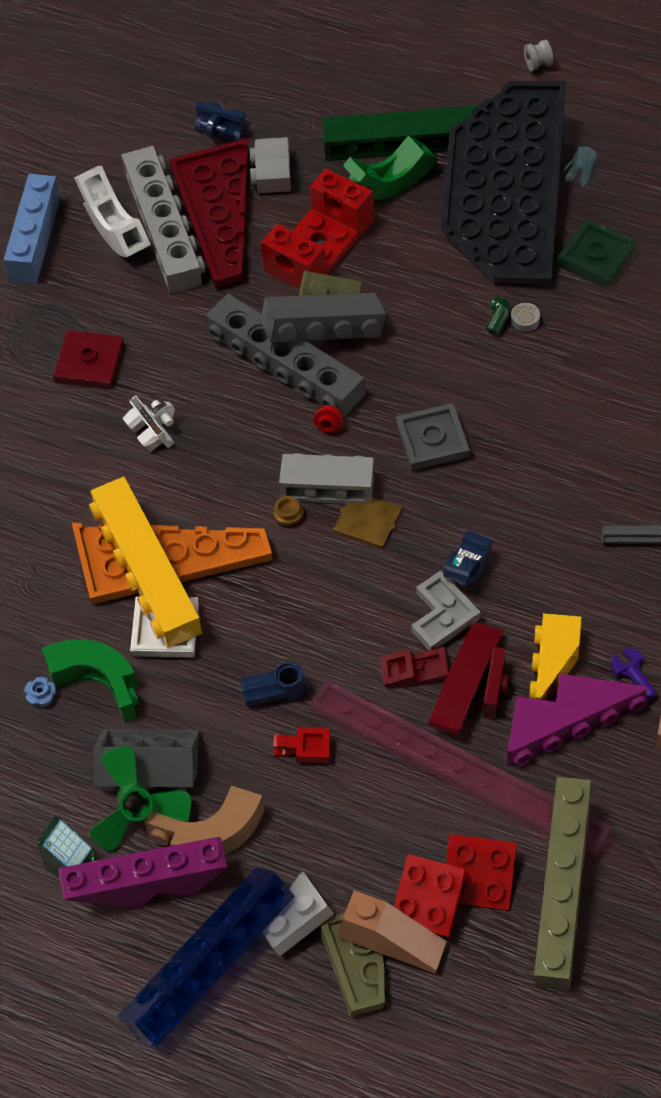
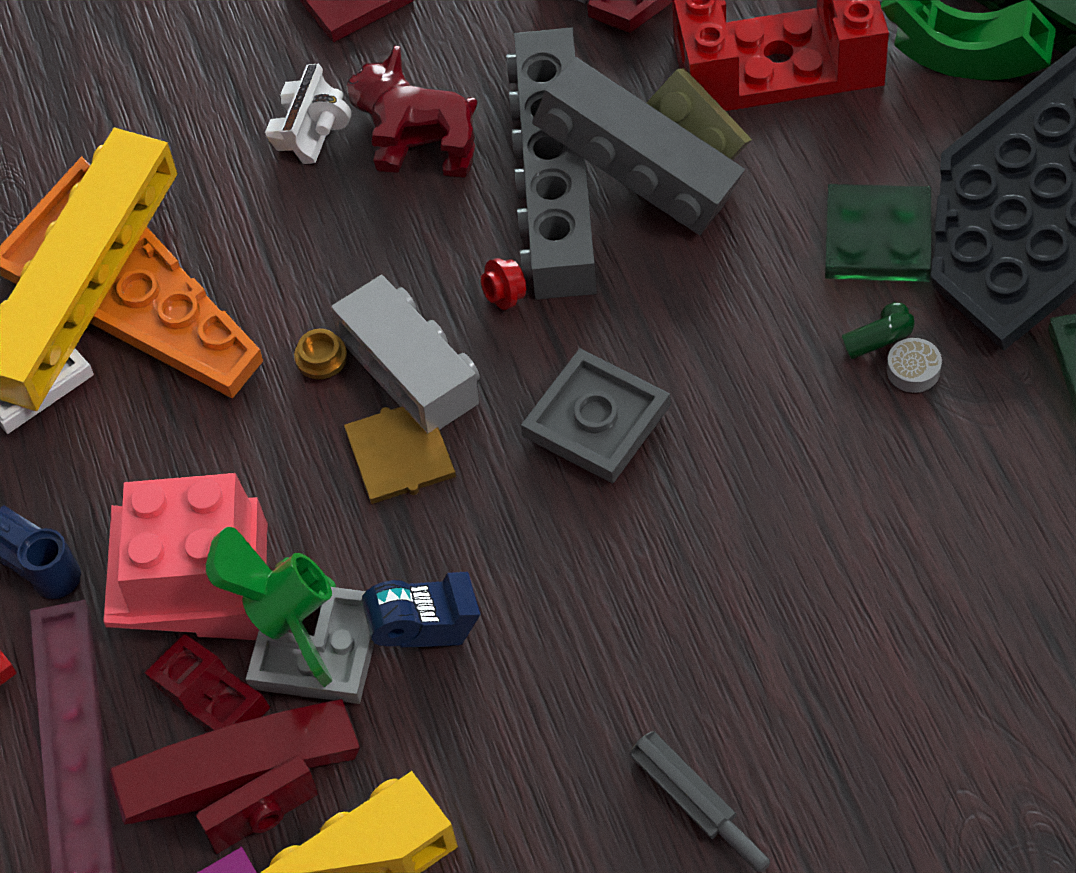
camera: 50 degrees right, 0 degrees up
(200, 386) = (412, 116): none -> dark red animal
(353, 622) = (162, 551): none -> coral piece
(419, 598) = (275, 598): none -> green piece
(448, 279) = (878, 232): none -> clear green plate

